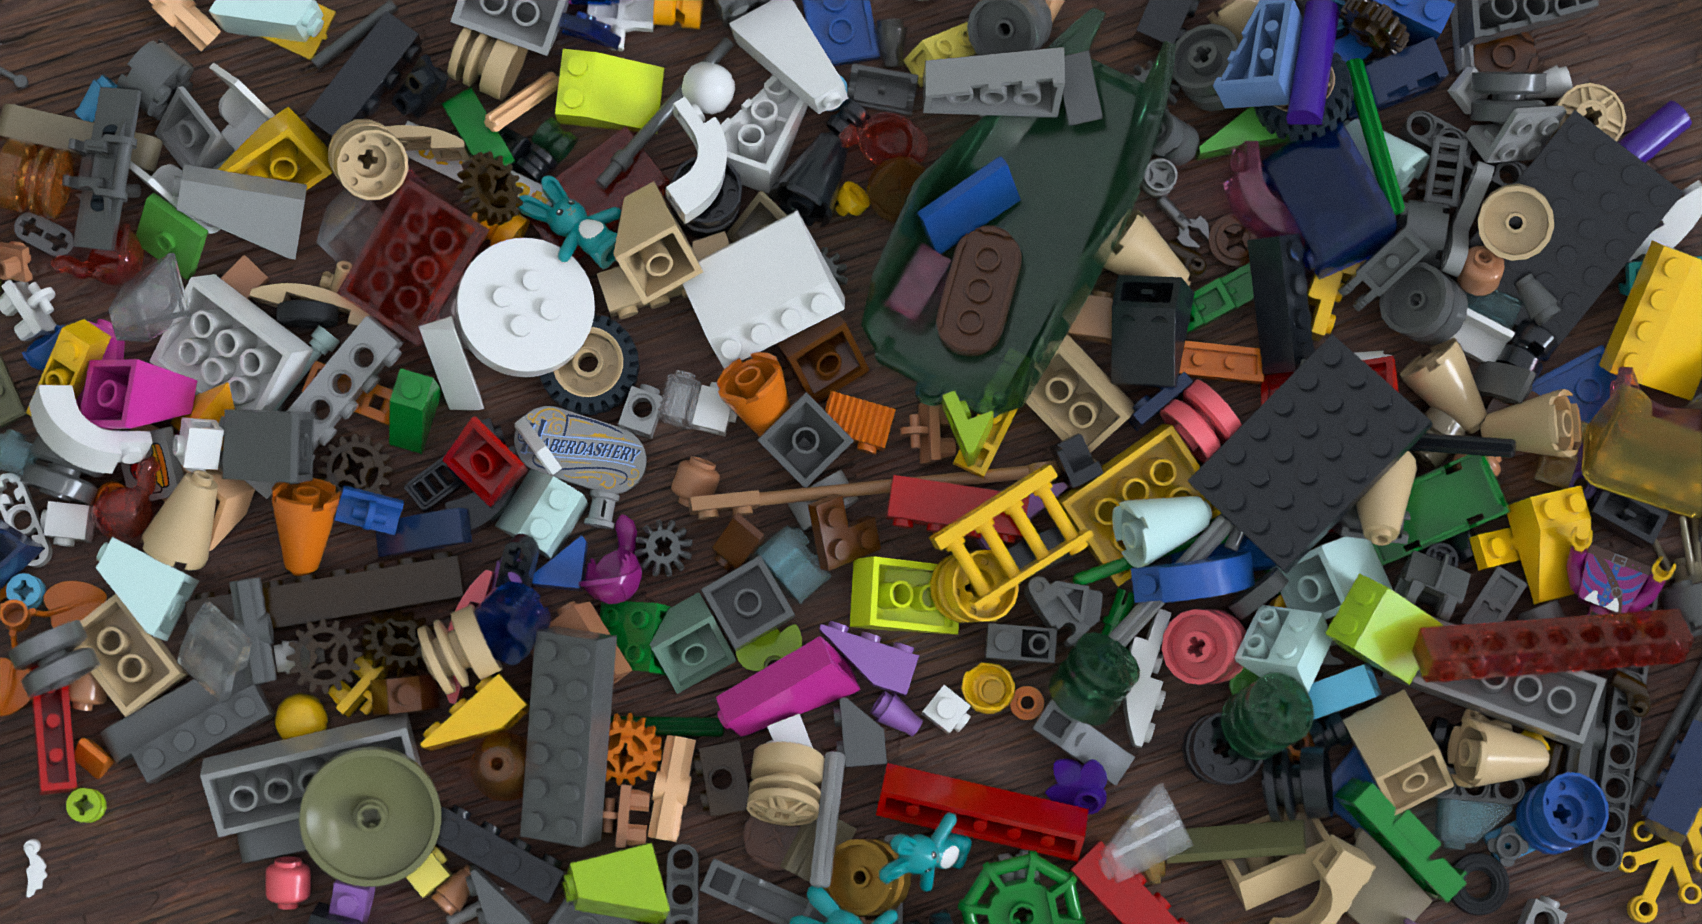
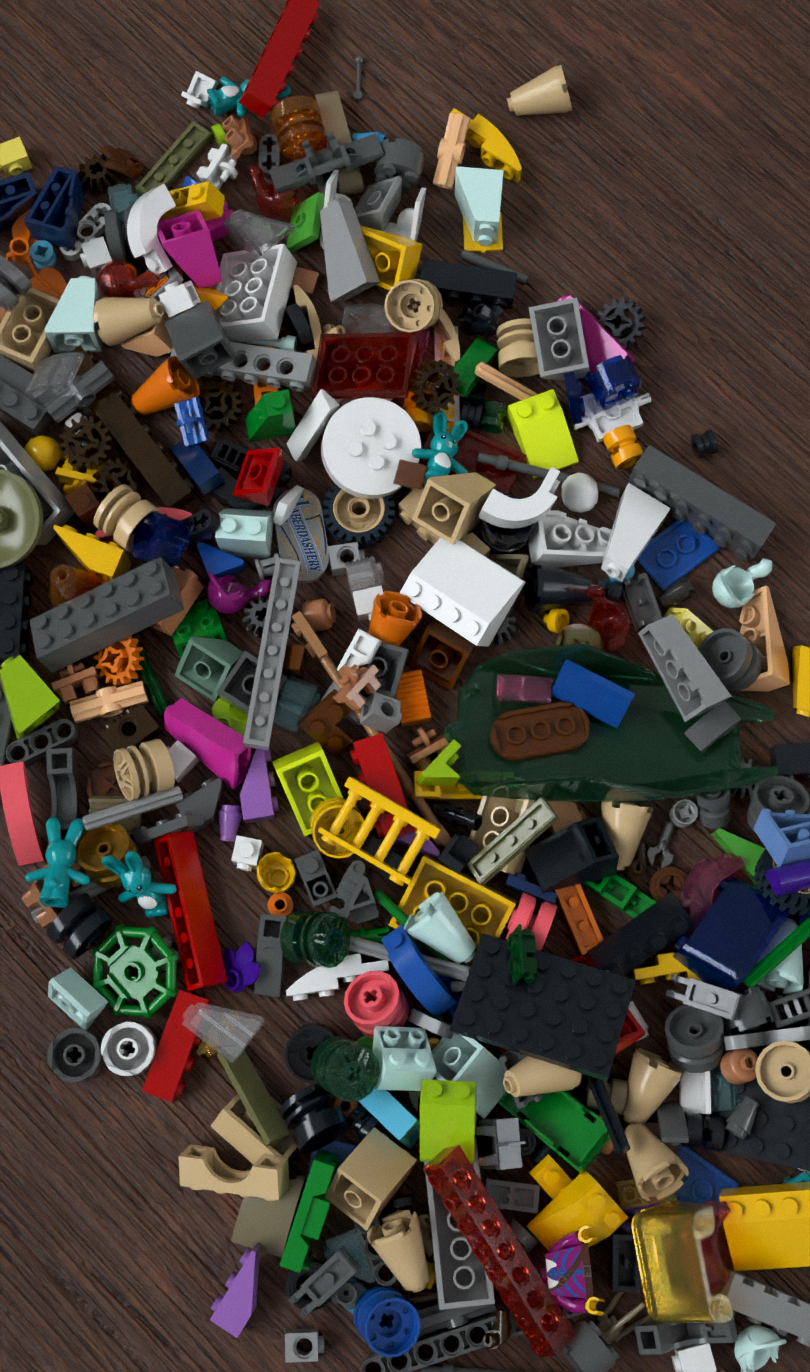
camera: 70 degrees right, 5 degrees down
(588, 277) = (409, 475): none -> reddish brown slope
(724, 557) = (271, 654): none -> light grey plate
(777, 451) = (360, 650): none -> white tile
(816, 476) = (352, 682): none -> nougat hips
(862, 465) = (381, 712): none -> light grey brick
(870, 791) = (183, 822): none -> dark grey hinge
(1029, 440) = (457, 815): none -> black pin
(1098, 390) = (512, 841): none -> olive tile
(1226, 443) = (520, 966): none -> dark green hinge
(1486, 861) = (325, 1280): none -> dark grey hinge

